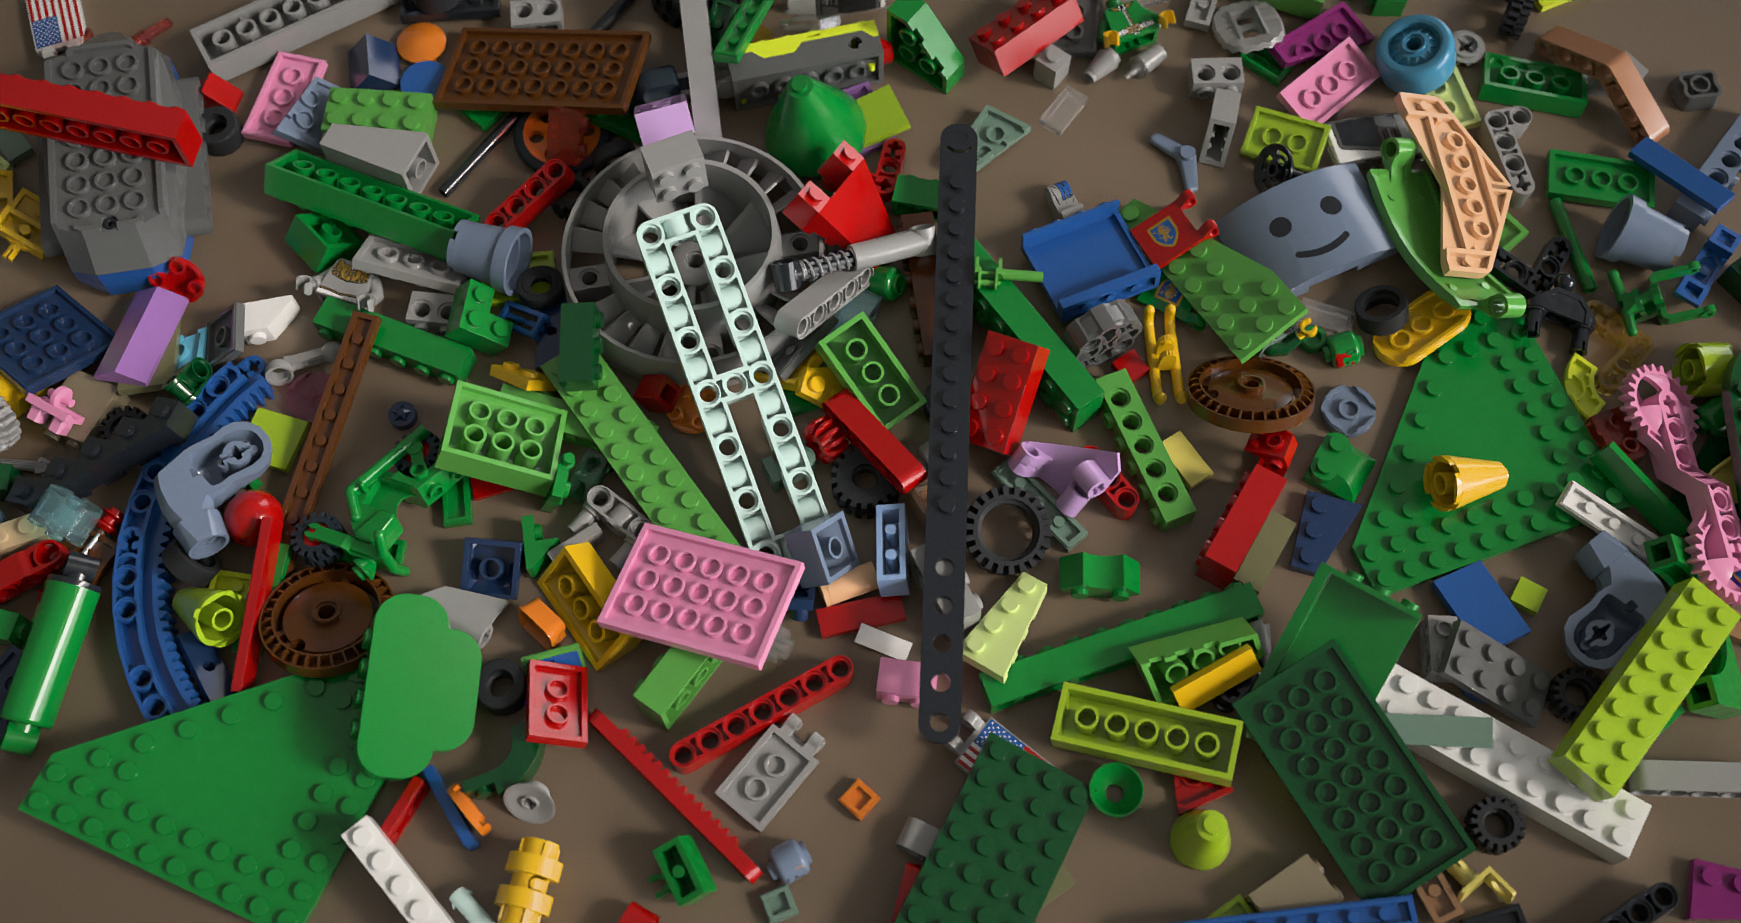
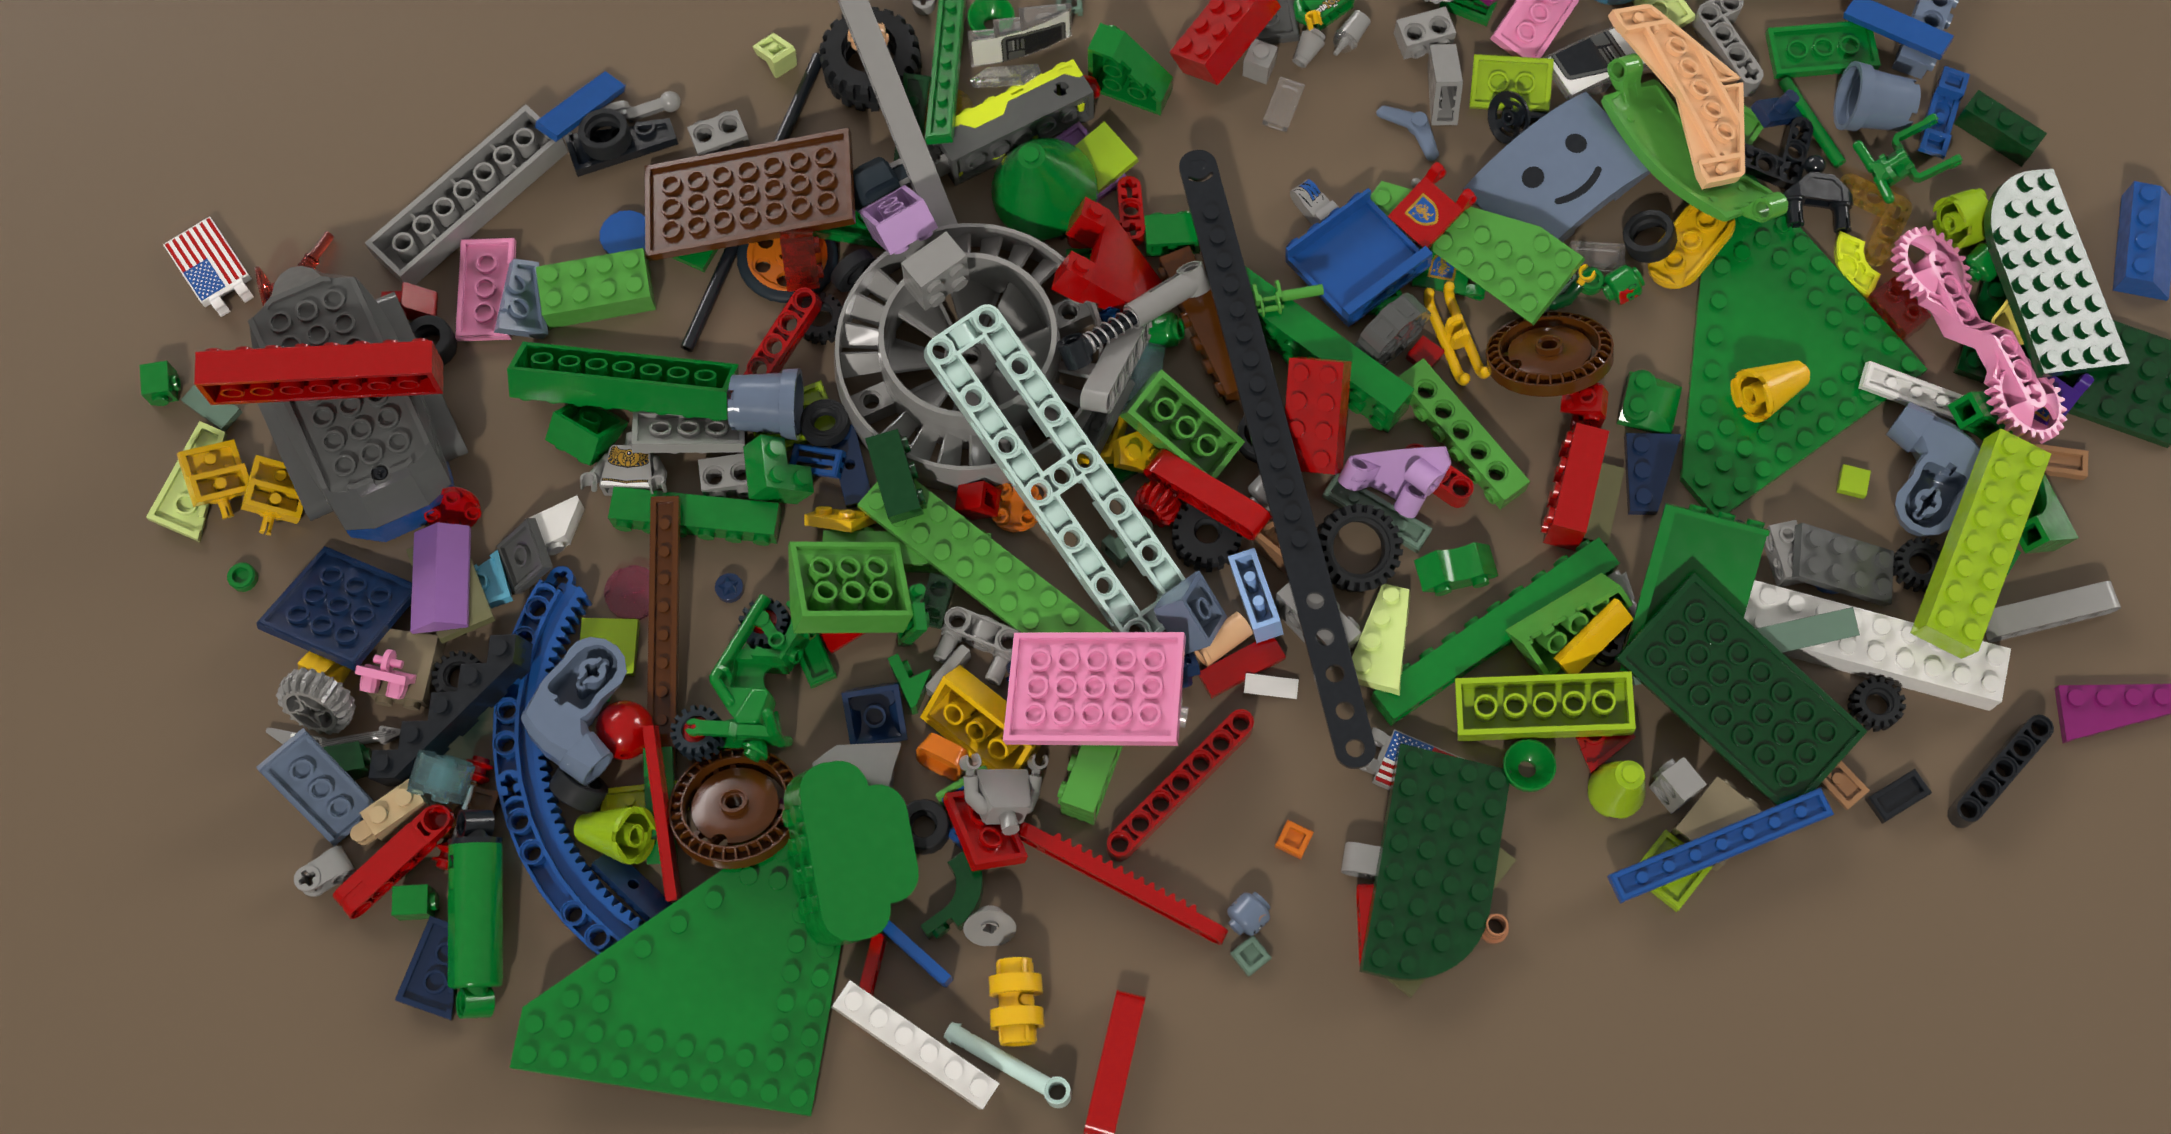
camera: 15 degrees left, 5 degrees up
(189, 380) = (508, 610): dark green piece -> none
(298, 361) = (633, 544): light grey piece -> none
(374, 64) = (565, 231): dark blue slope -> none
(387, 154) = (618, 325): light grey slope -> none
(421, 42) = (605, 193): orange dish -> none
(469, 809) = (936, 949): orange tile -> none
(582, 674) = (1002, 794): none -> light grey torso
(683, 870) = (1155, 949): green brick -> none
(770, 773) = (1204, 838): light grey tile -> none
(899, 681) = (1301, 719): bright pink brick -> none
(996, 133) = (1226, 143): sand green wing -> none
(1187, 461) = (1505, 433): light yellow tile -> none
(1262, 850) = (1676, 784): none -> light grey brick
(1348, 410) = (1642, 344): sand blue tile -> none
(1472, 880) = (1867, 759): light yellow bracket -> none
(1480, 602) = (1812, 500): blue tile -> none
(1540, 225) = (1777, 110): none -> dark blue tile
(1640, 490) = (1933, 354): green tile -> none

